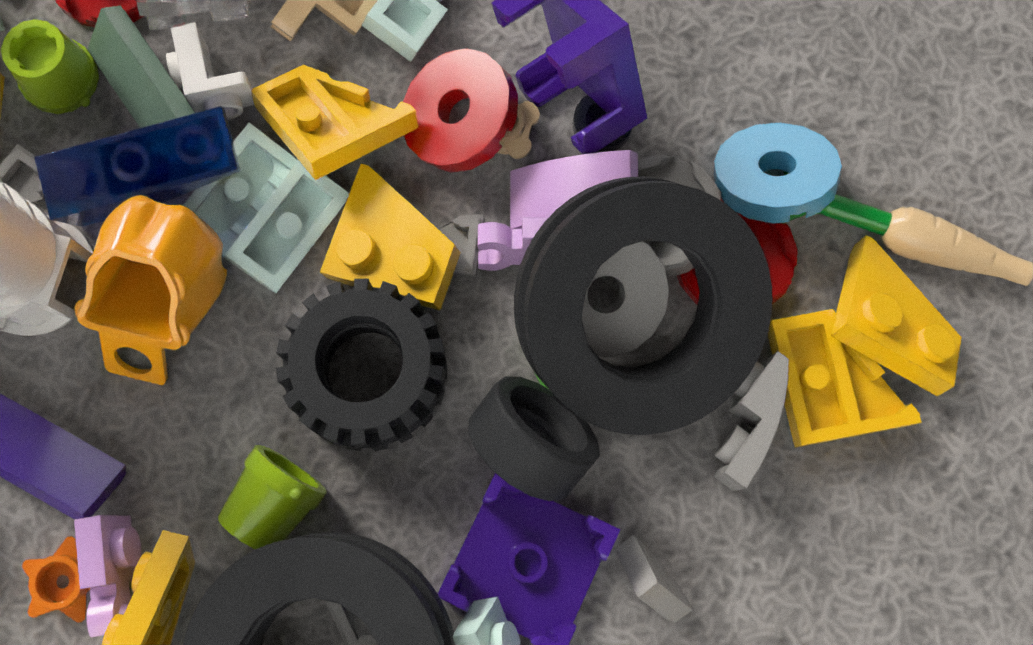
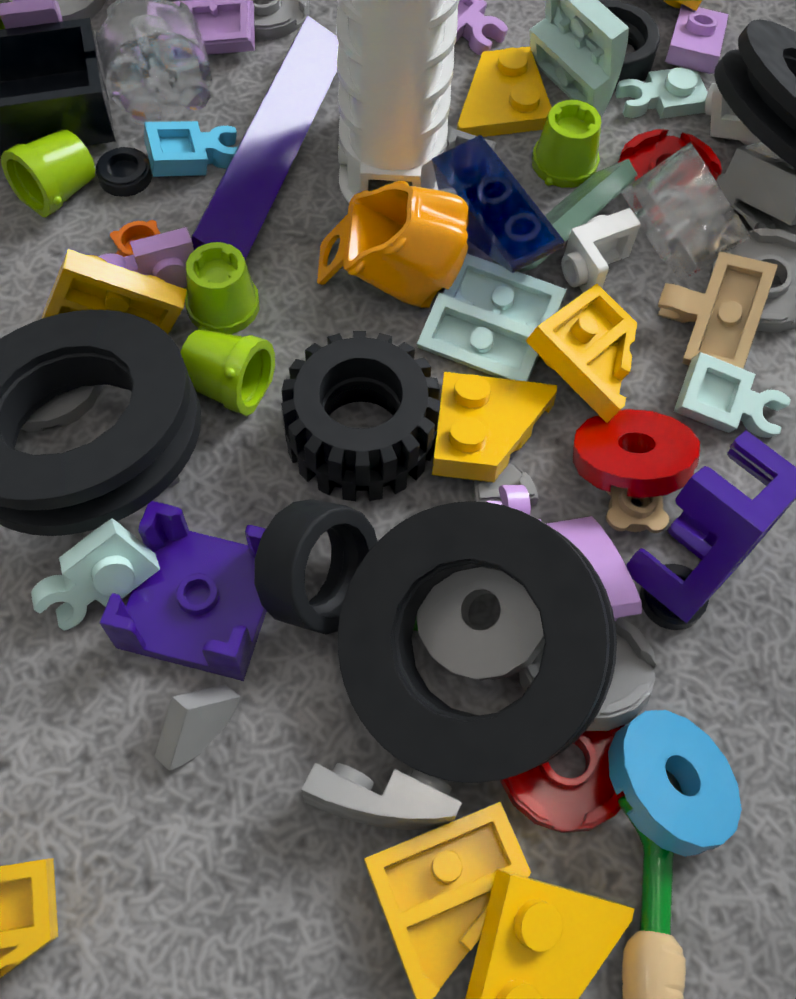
camera: 80 degrees right, 15 degrees down
(162, 493) = (220, 289): none -> lime piece

